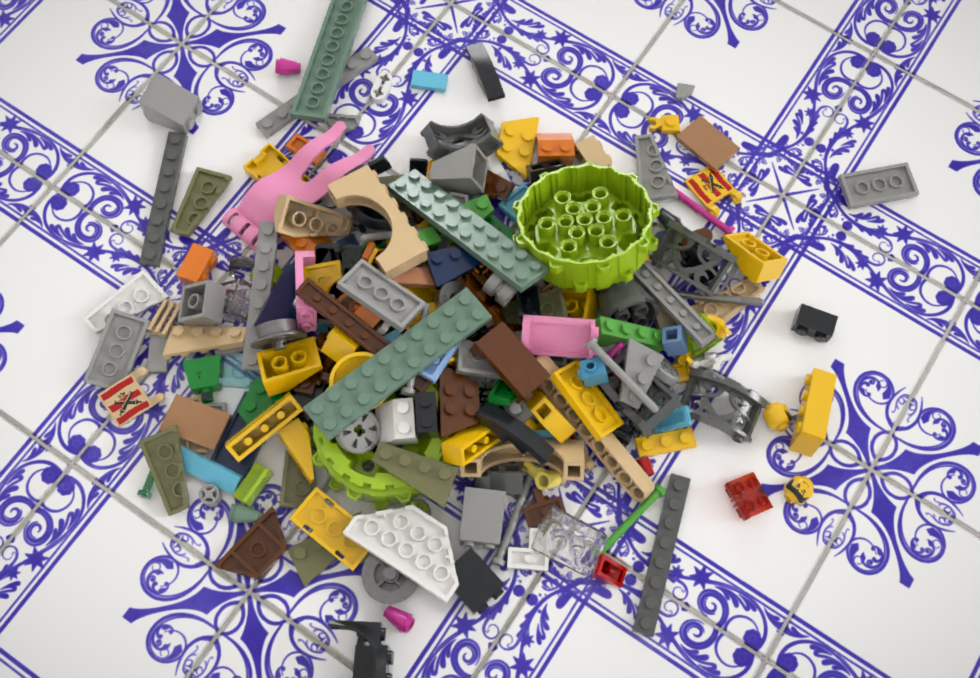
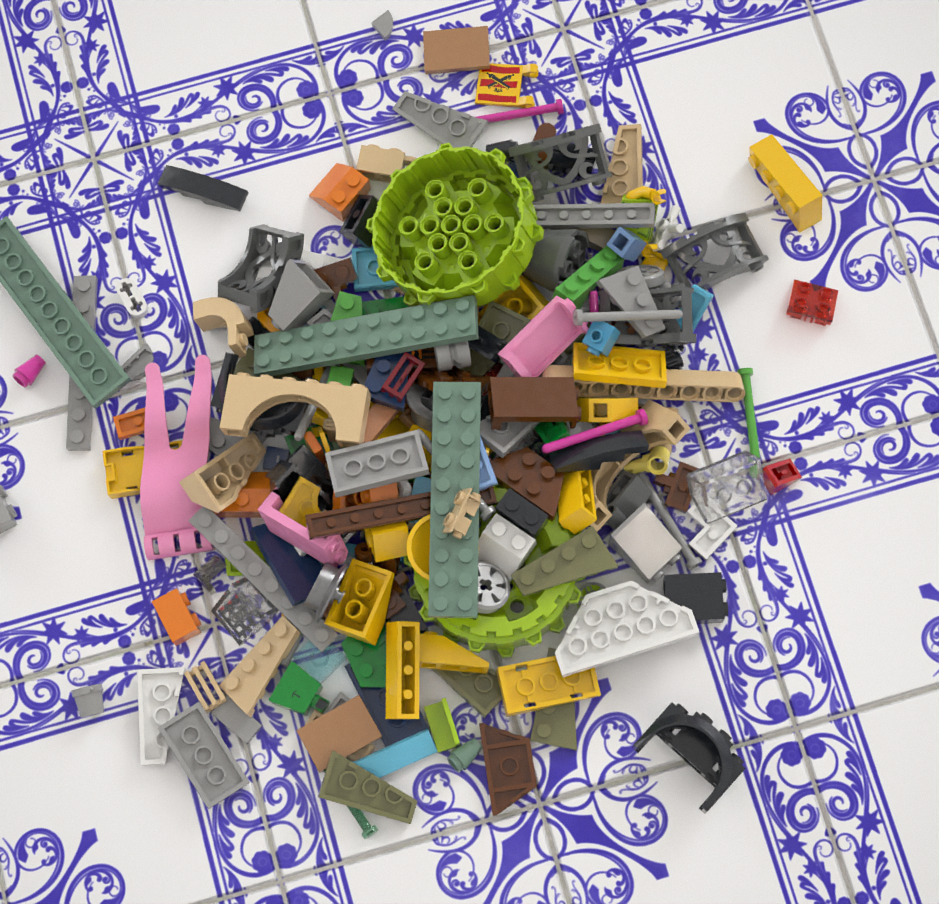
camera: 40 degrees left, 5 degrees up
(102, 257) = (89, 700): none -> light grey piece
(127, 398) = (261, 781): flag -> none
(163, 200) = (72, 597): dark grey plate -> none
(199, 198) = (103, 561): olive wing -> none
(202, 304) = (225, 639): light grey brick -> none
(206, 493) = (421, 768): light grey wheel -> none
(381, 373) = (464, 504): none -> tan hinge
(385, 582) = (634, 674): flat silver wheel -> none
(399, 619) = (675, 688): dark pink cone -> none
(412, 139) = (221, 312): none -> tan arch
(429, 81) = (164, 248): medium azure tile -> none
(472, 261) = (394, 392): none -> dark red tile
(518, 143) = (304, 215): yellow wing -> none
(562, 441) = (639, 418): none -> dark pink bar
(646, 465) = (714, 365): red hinge -> none
(661, 555) = (801, 418): dark grey plate -> none
(665, 443) = (707, 331): yellow plate -> none
(667, 124) = (404, 68): yellow plate -> none
(720, 298) = (617, 170): flat silver bar -> none
(755, 257) = (610, 105): yellow slope -> none
(777, 416) = (764, 216): yellow head -> none
(798, 490) = (842, 255): yellow head -> none
(814, 323) = (708, 110): black brick -> none

